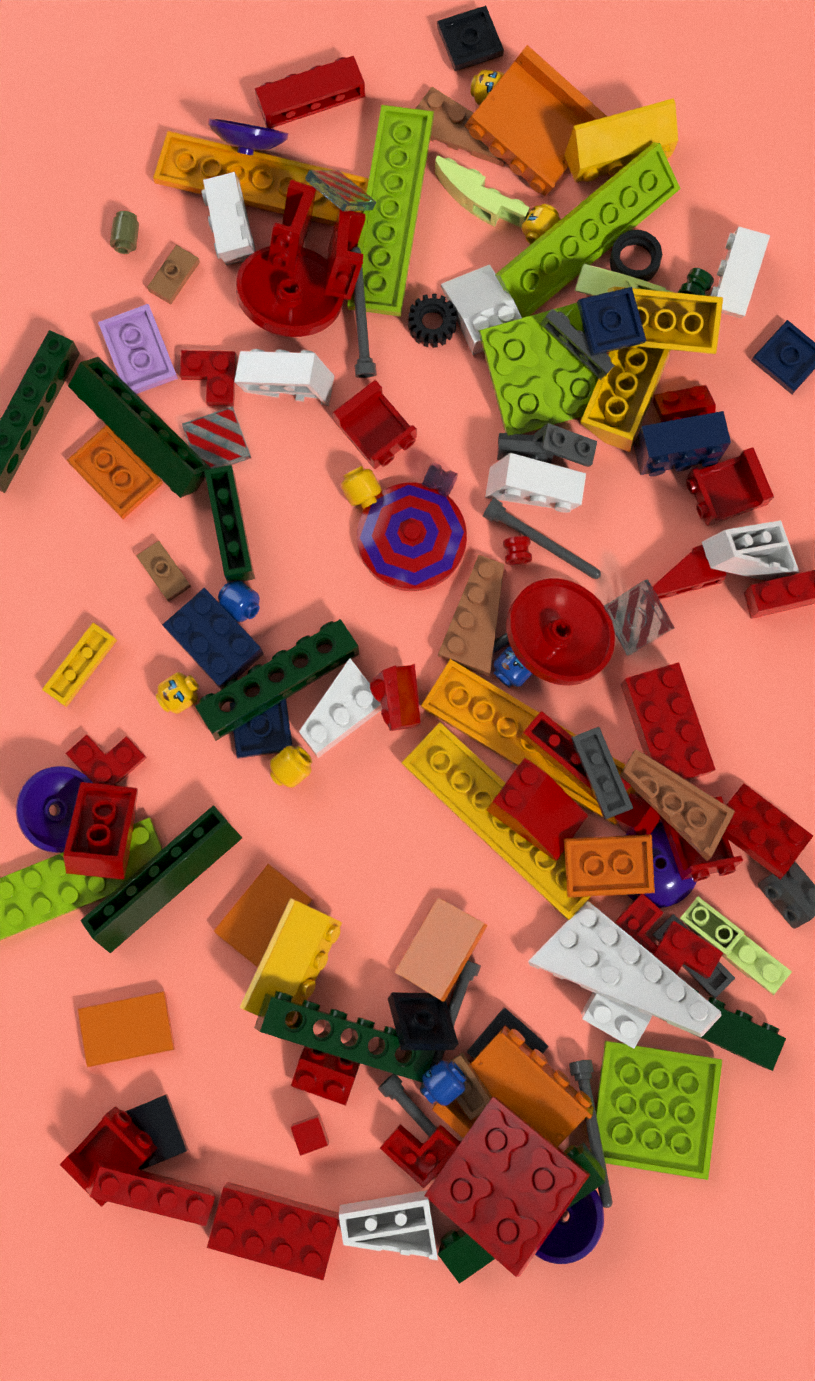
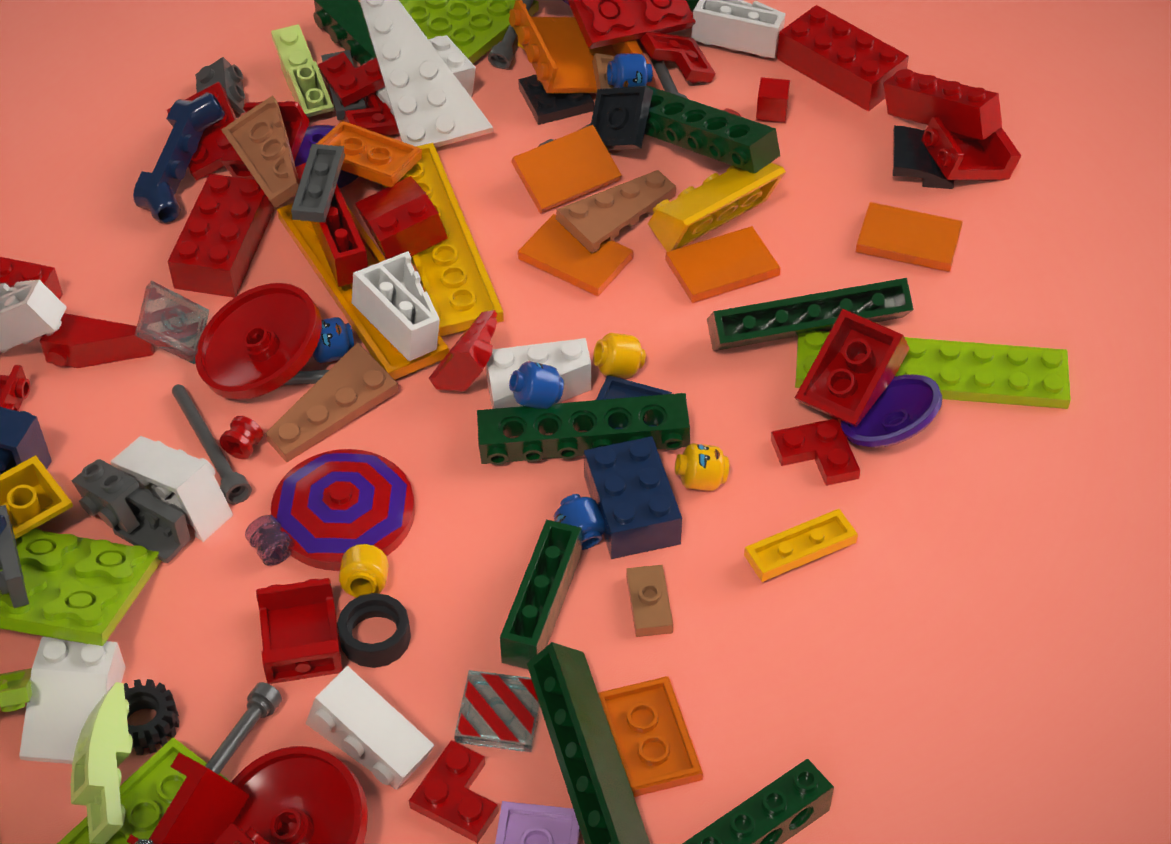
camera: 150 degrees left, 30 degrees down
(321, 678) = (536, 385): none -> blue head
(322, 432) = (368, 607): none -> black tyre
(379, 917) = (609, 211): none -> nougat wing
(384, 863) = (563, 256): none -> orange tile
(427, 265) = (94, 773): none -> yellowish green slope
(472, 707) = (397, 305): none -> white wedge
(772, 813) = (158, 189): none -> dark blue plate

